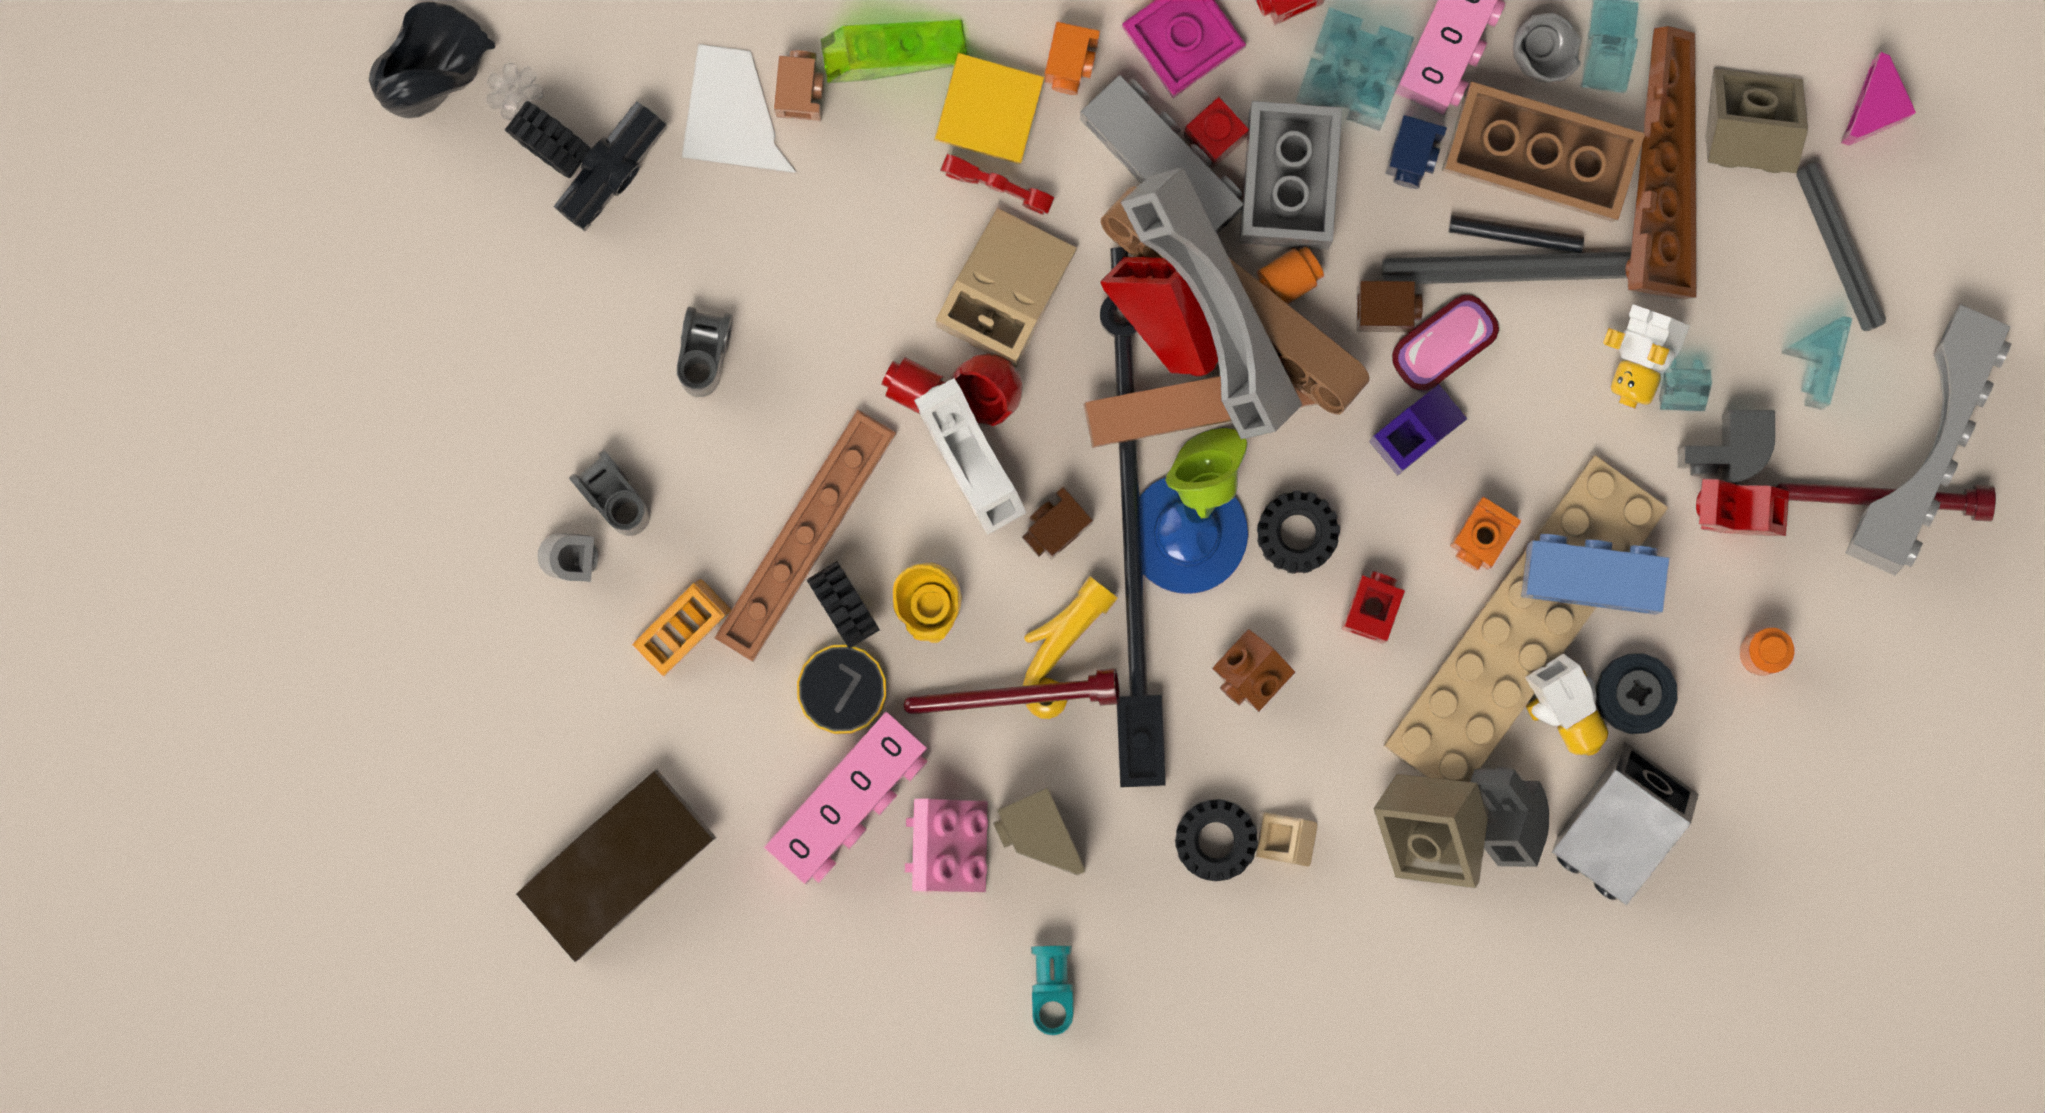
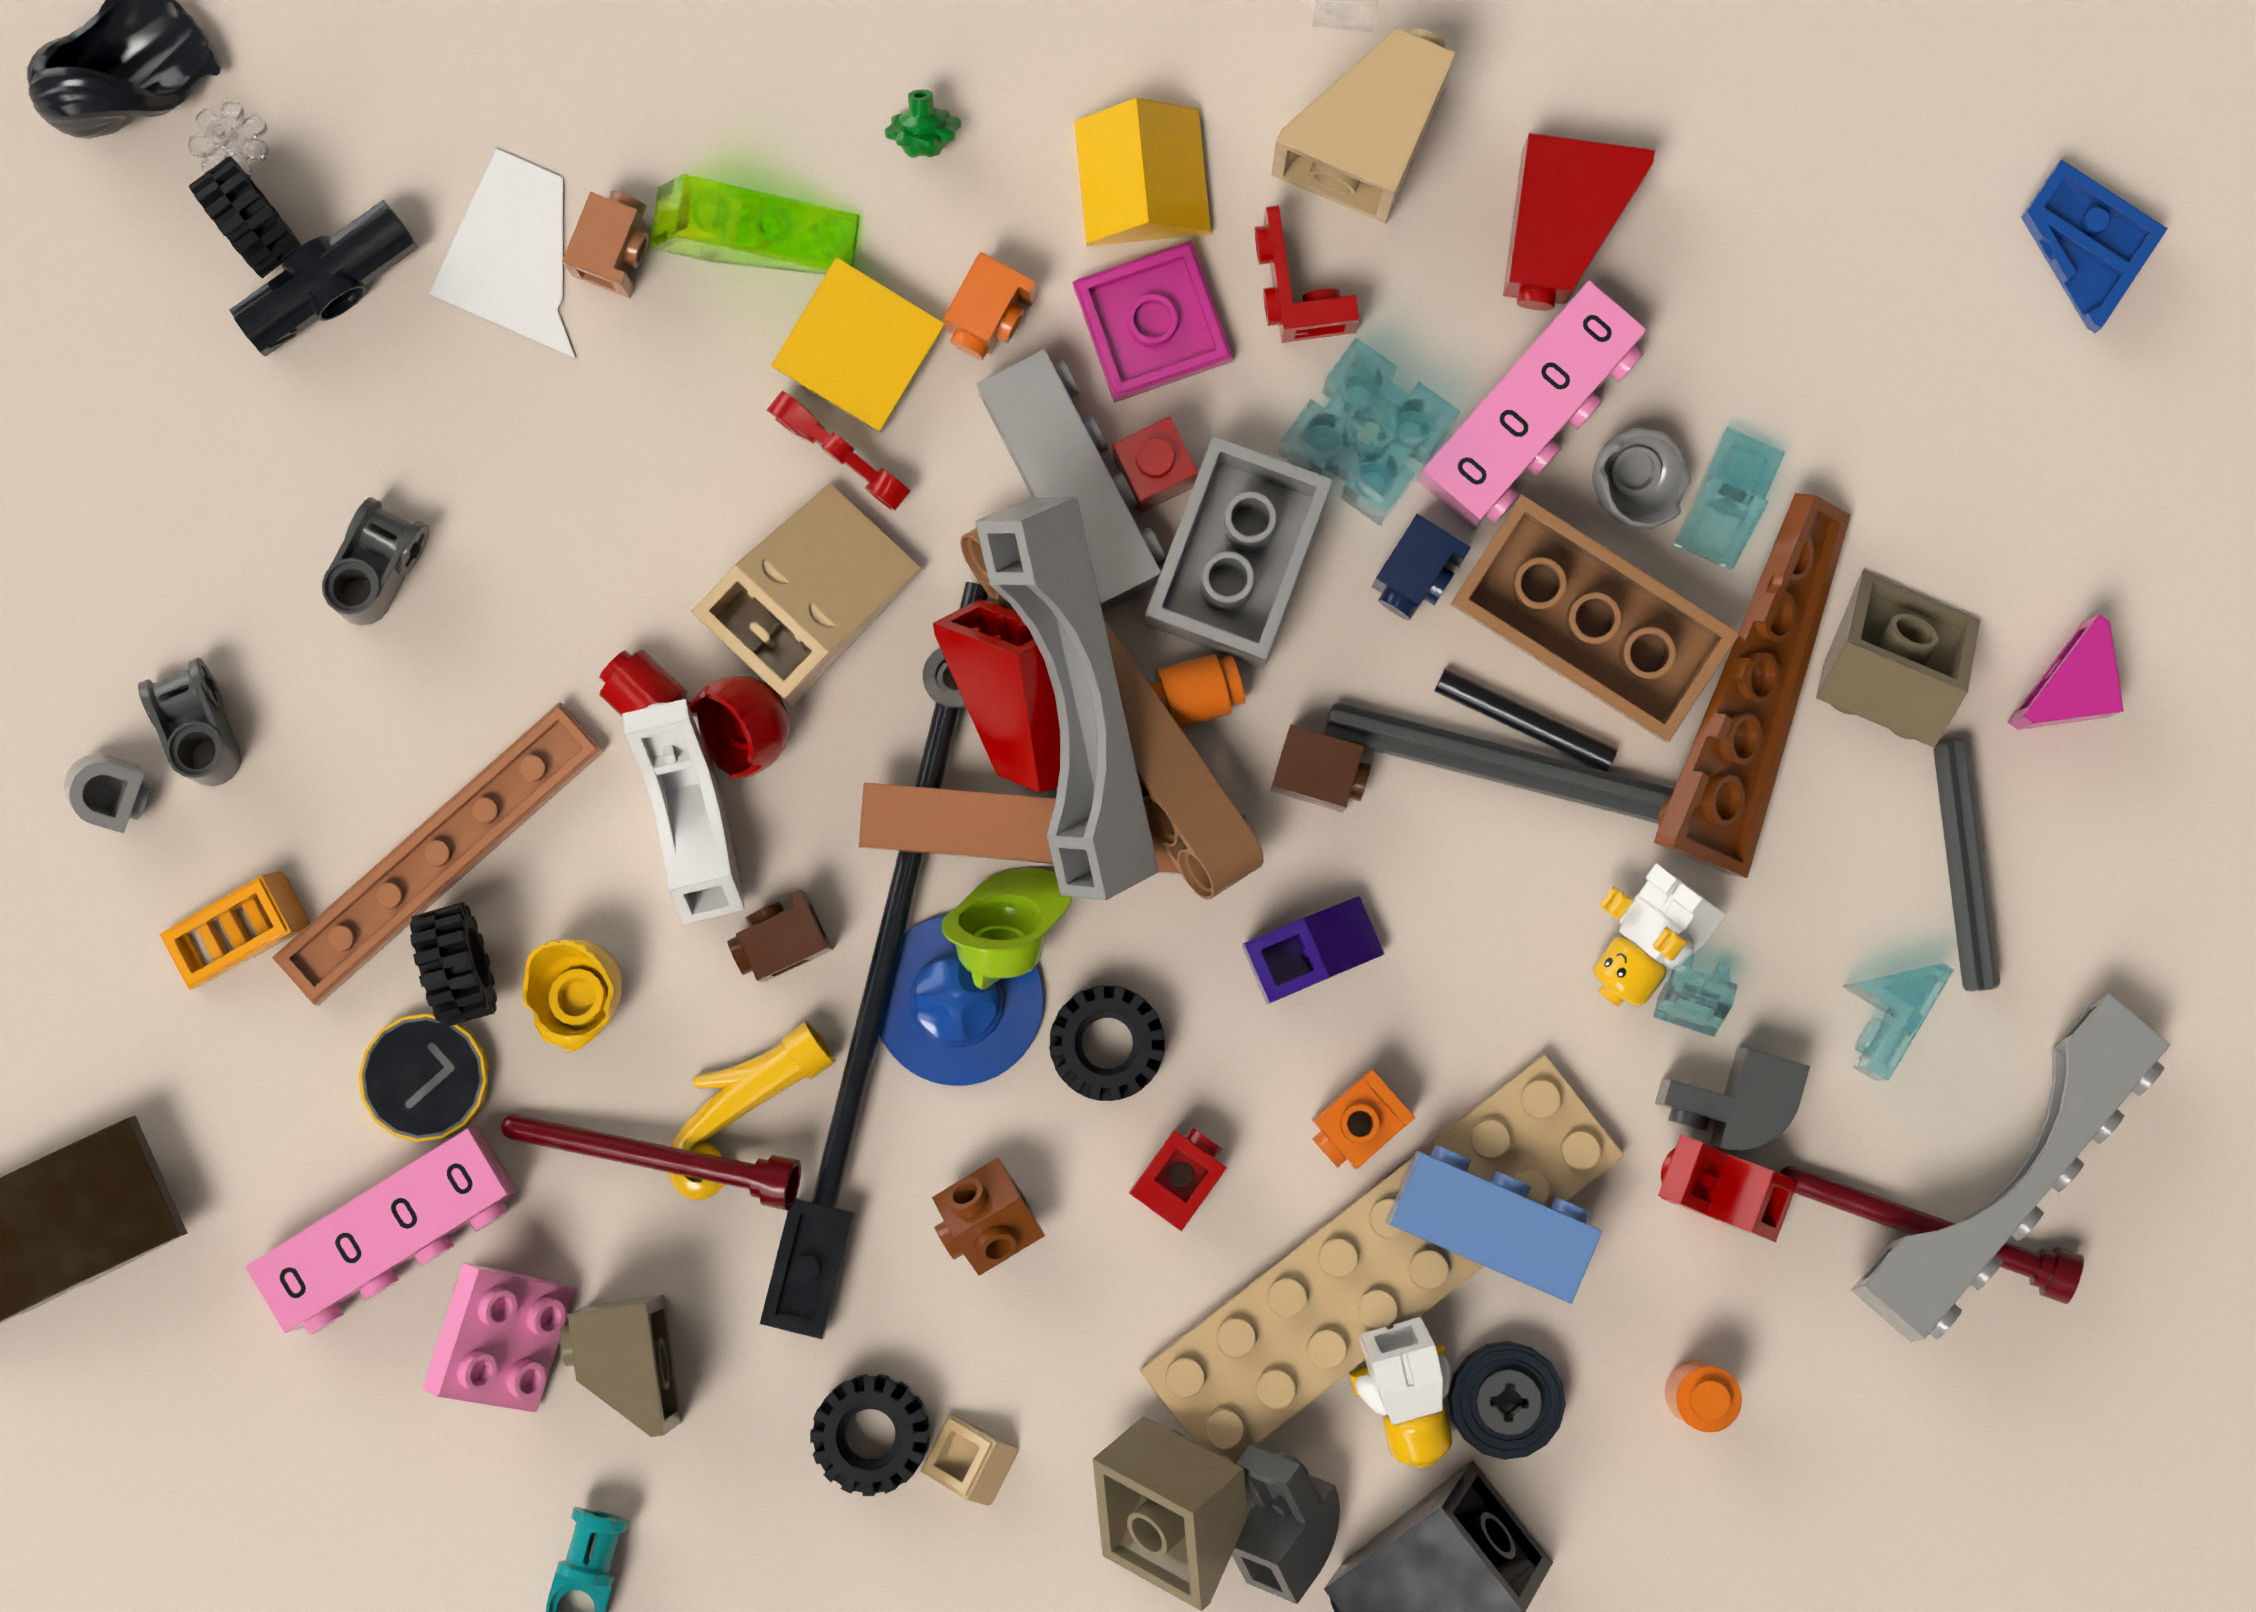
camera: 20 degrees right, 0 degrees up
(1445, 342) = (1386, 840): sticker -> none

